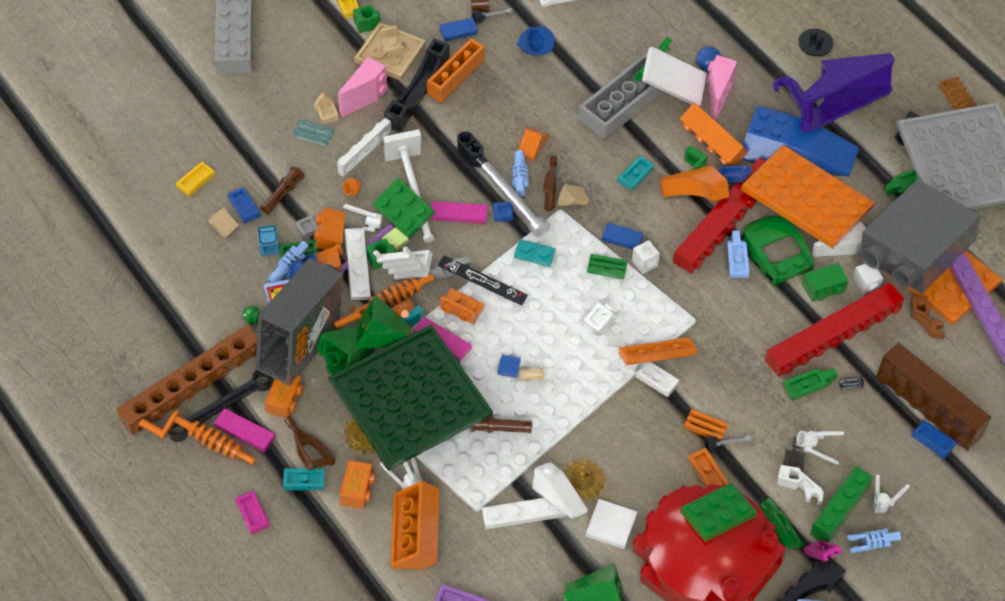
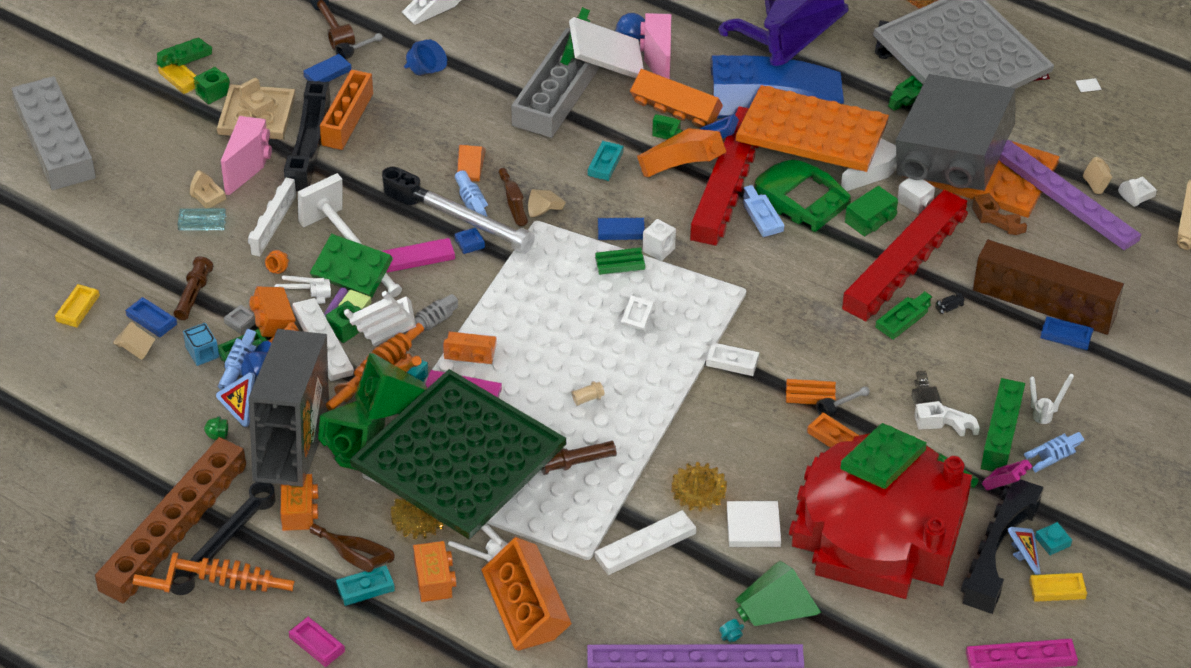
camera: 20 degrees left, 10 degrees down
(244, 430) = (266, 555): dark pink tile -> none
(483, 280) = (482, 314): black sticker -> none
(509, 366) = (556, 393): blue tile -> none
(534, 253) = (529, 270): teal plate -> none
(558, 490) = (676, 501): white slope -> none
(657, 351) = (720, 329): orange plate -> none
(810, 439) = (936, 368): white plant -> none

